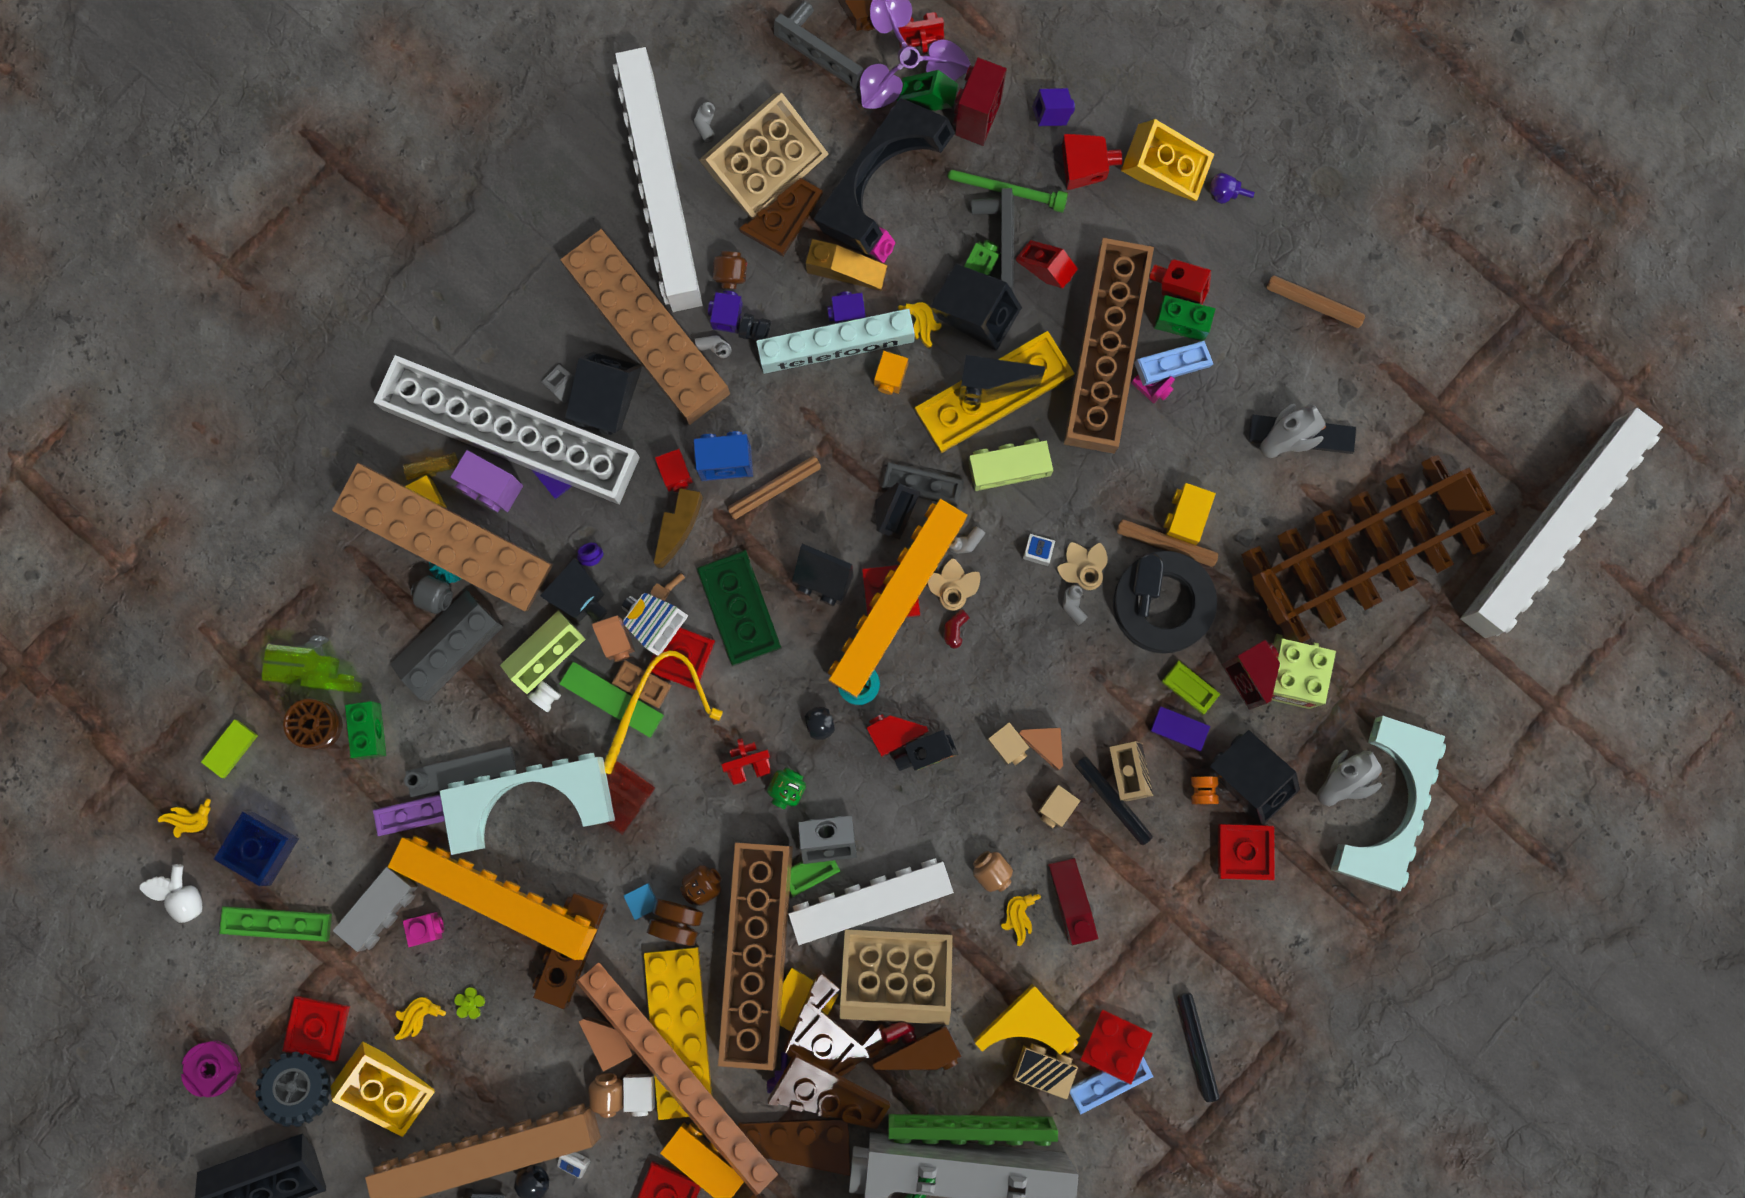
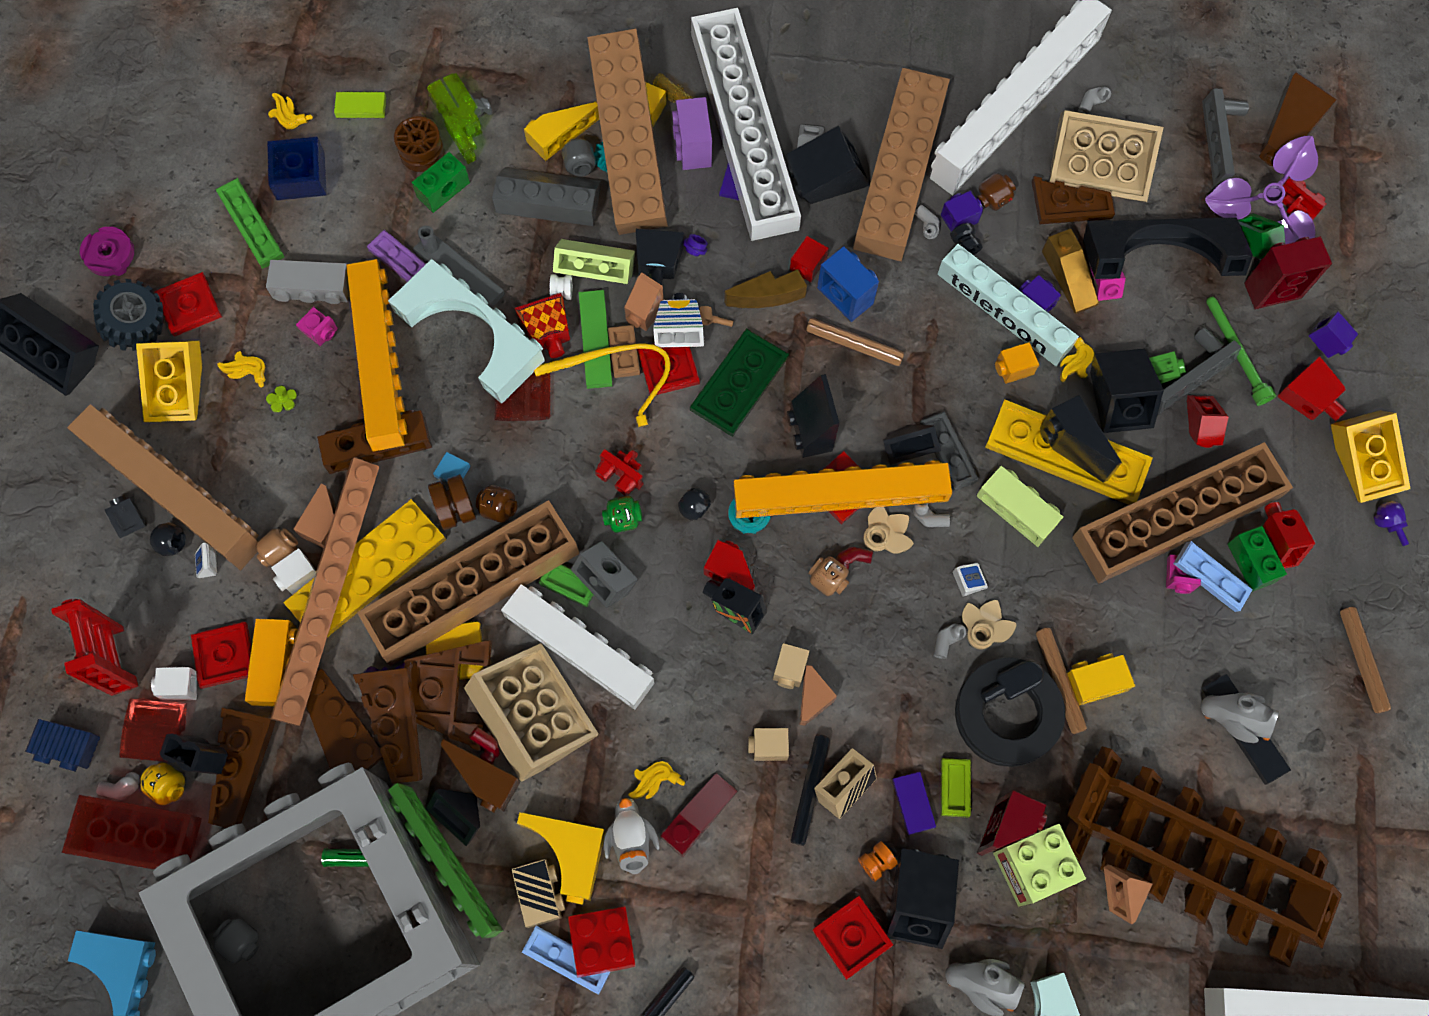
camera: 50 degrees right, 10 degrees down
(180, 902) = (221, 146): white piece -> none
(389, 594) = (555, 129): none -> yellow slope
(569, 732) = (546, 323): none -> red torso
(936, 1091) = (456, 813): none -> black slope
(958, 660) = (829, 576): none -> medium nougat head
(992, 871) = (675, 728): medium nougat head -> none
(1053, 968) = (630, 837): none -> animal
(1358, 623) = (1125, 892): none -> nougat slope

